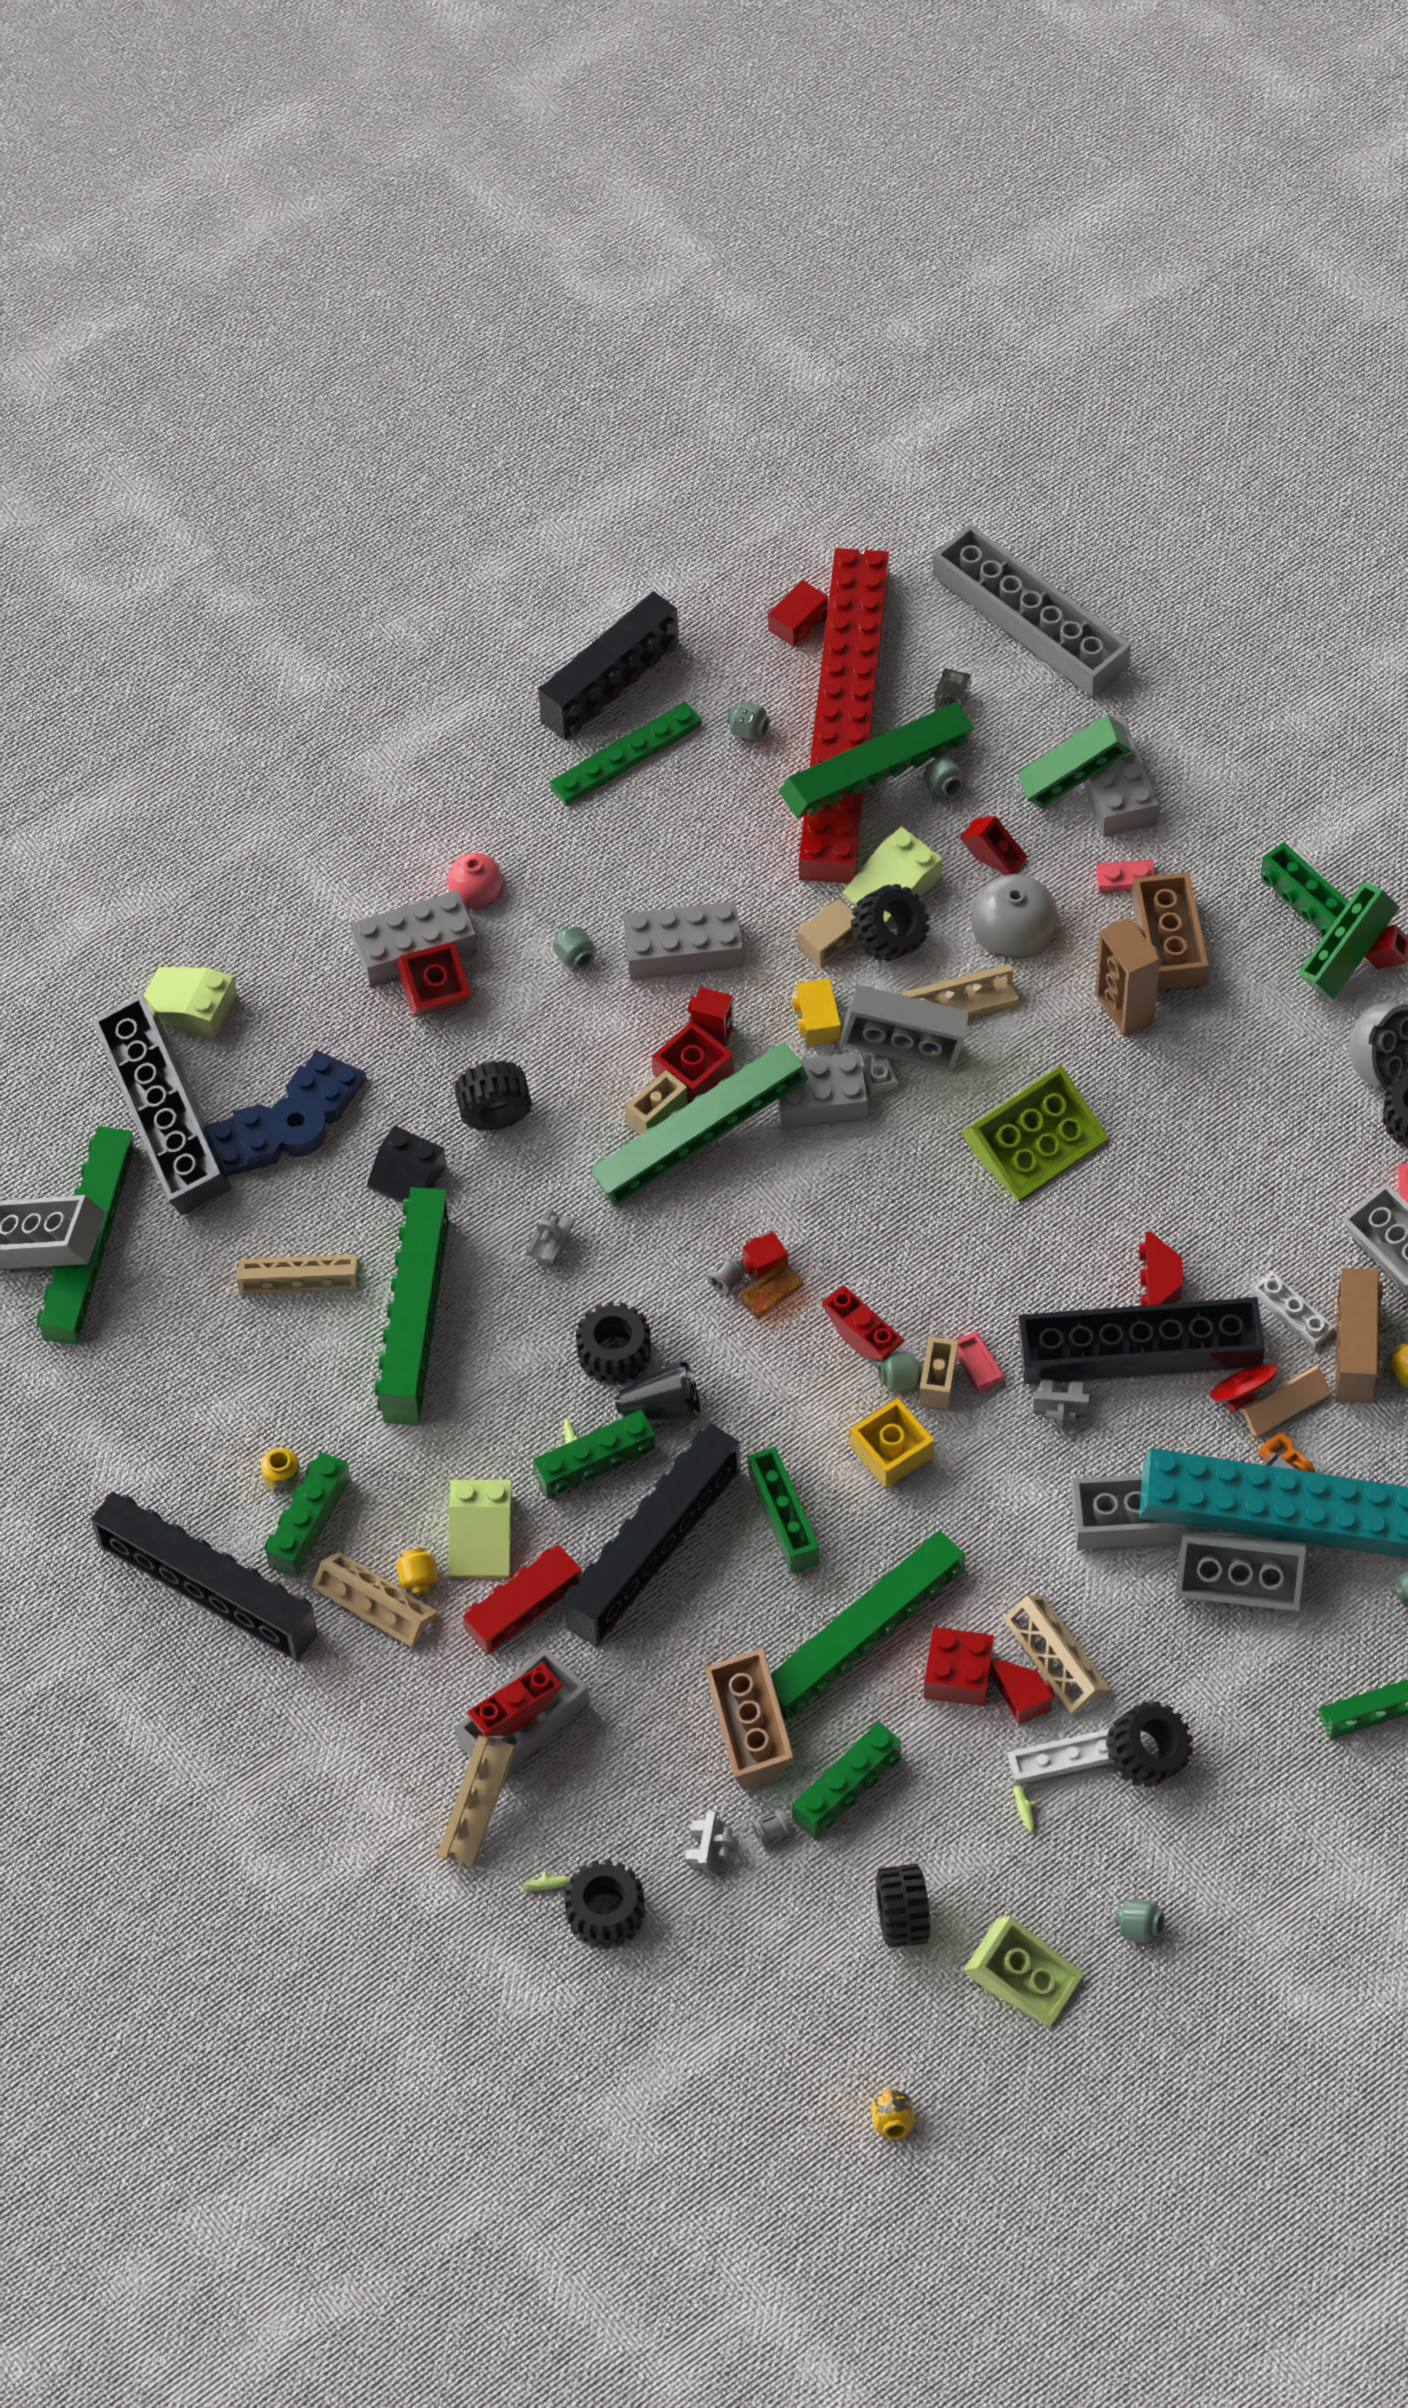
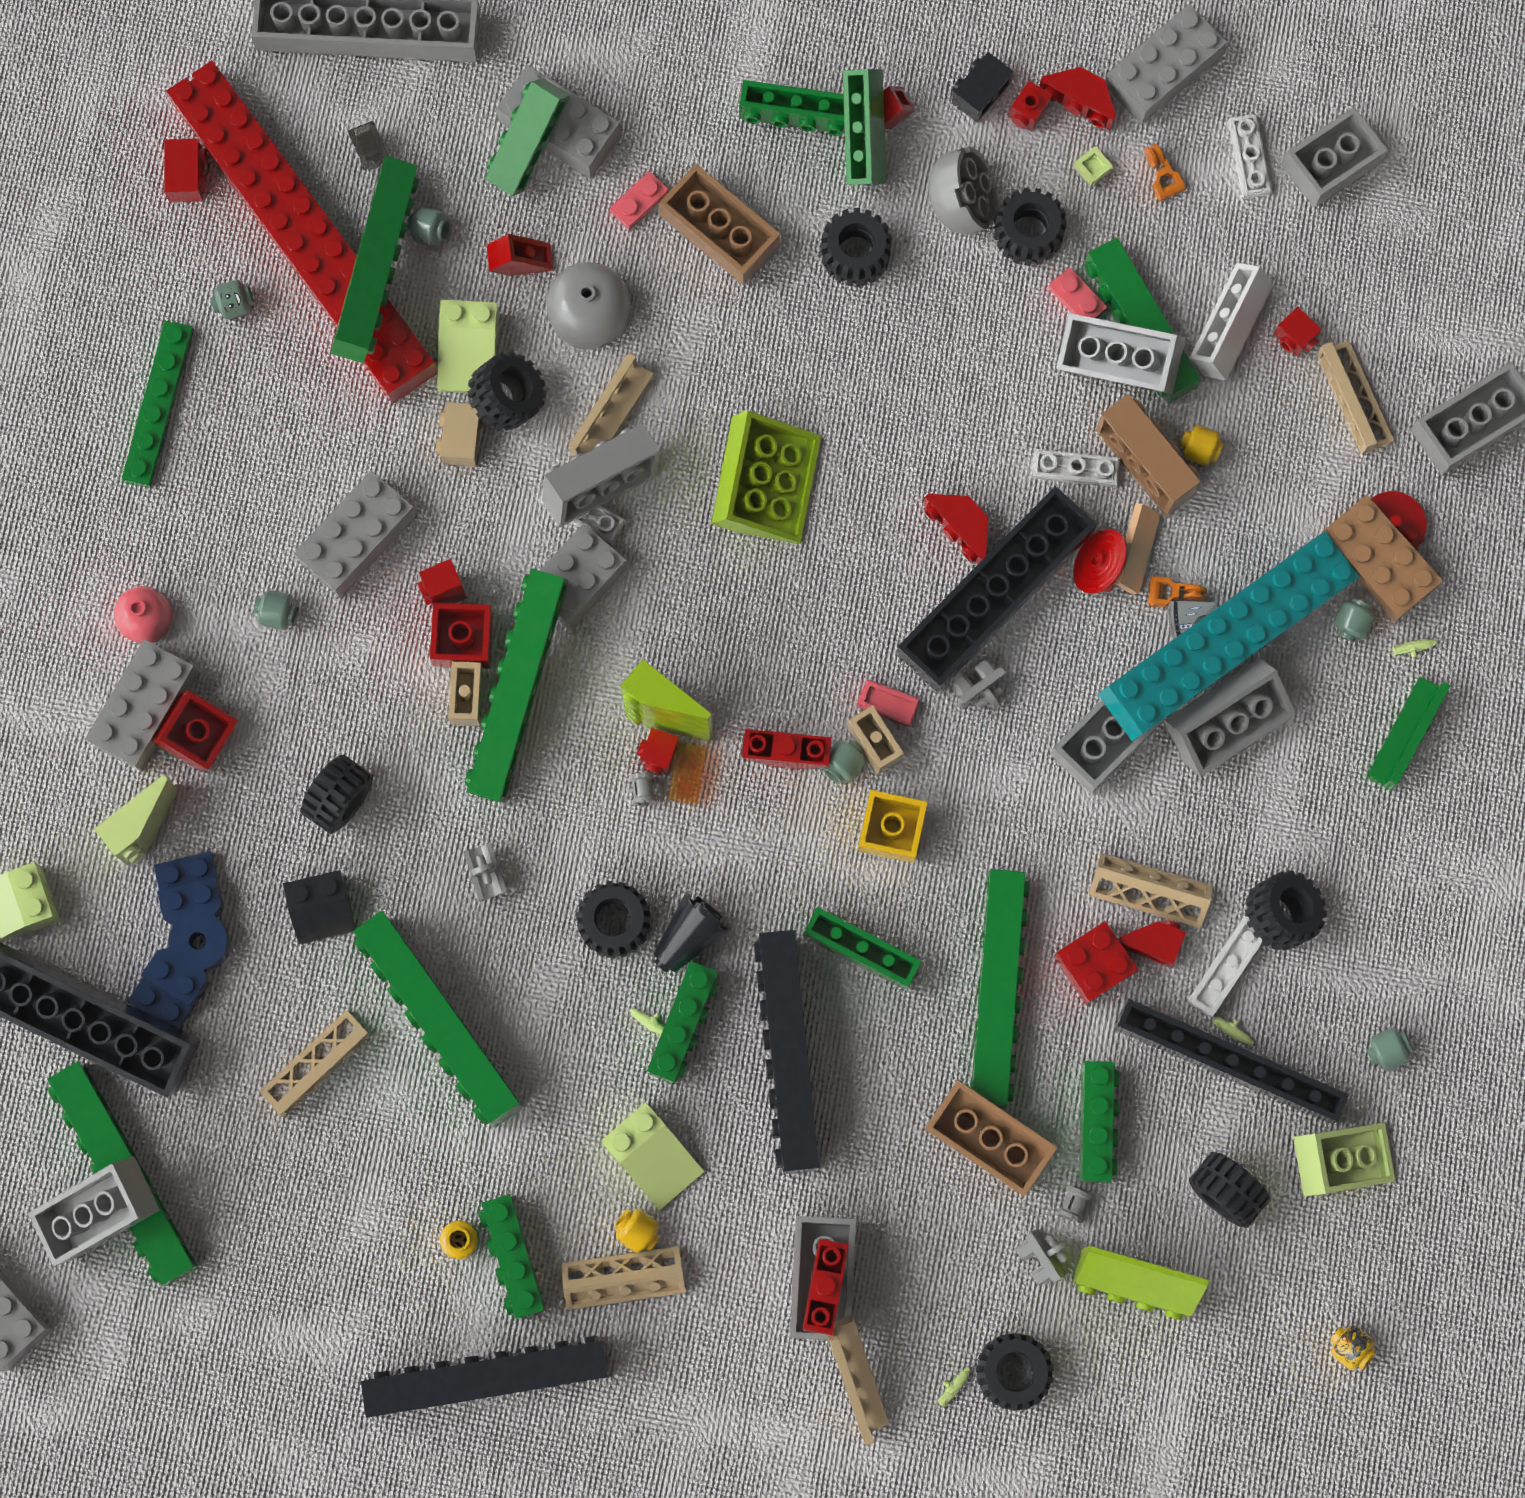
camera: 45 degrees left, 20 degrees up
(335, 1007) = (136, 823): none -> yellowish green slope
(521, 1599) = (734, 1183): red brick -> none
(608, 665) = (80, 340): black brick -> none
(765, 1912) = (1138, 1282): none -> lime slope
(791, 1209) = (662, 705): none -> lime slope
(817, 1012) = (513, 510): yellow brick -> none
(998, 1821) = (1231, 1062): none -> black brick
(1127, 976) = (734, 294): medium nougat brick -> none
(1266, 1005) = (856, 225): none -> black tyre

